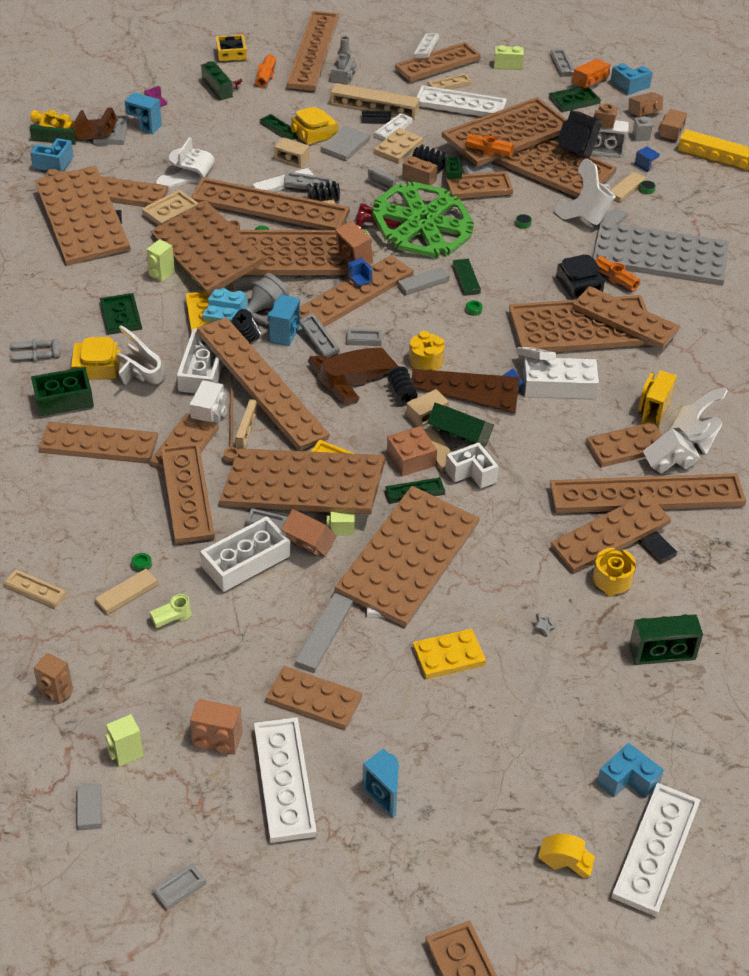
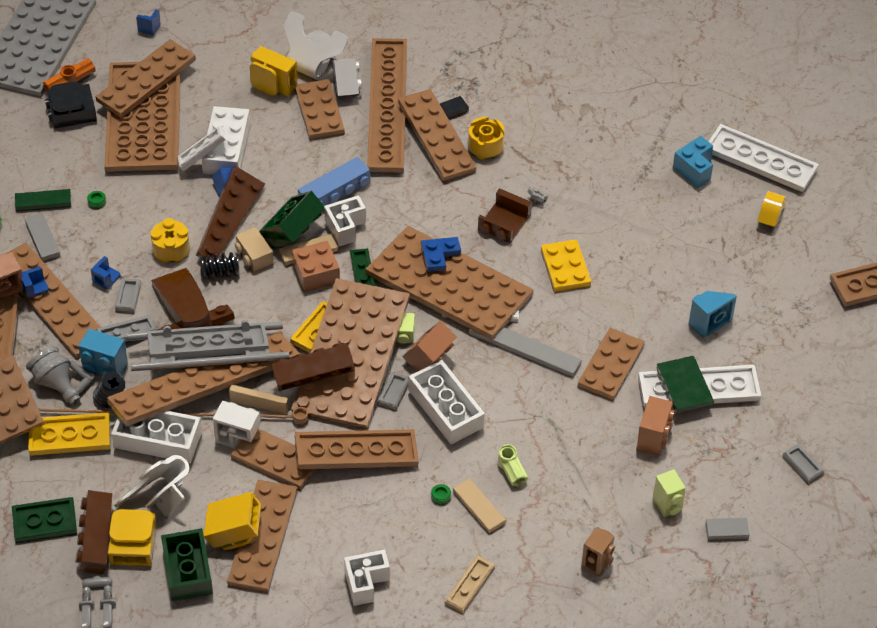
camera: 85 degrees left, 5 degrees up
(41, 502) = (363, 572): none -> white brick
(77, 333) = (95, 532): none -> reddish brown brick
(100, 411) = (232, 521): none -> yellow brick
(224, 304) = (71, 407): medium azure plate -> none
(271, 446) = (313, 366): none -> reddish brown brick
(278, 758) = (685, 384): none -> dark green tile
(299, 377) = (207, 341): none -> light grey piece
(385, 318) = (103, 274): none -> blue panel
(439, 533) = (435, 251): none -> blue plate
(505, 598) = (505, 216): none -> reddish brown panel
(521, 458) = (339, 182): none -> medium blue brick
(665, 639) = (567, 115): dark green brick -> none
(704, 317) = (148, 24): none -> blue panel

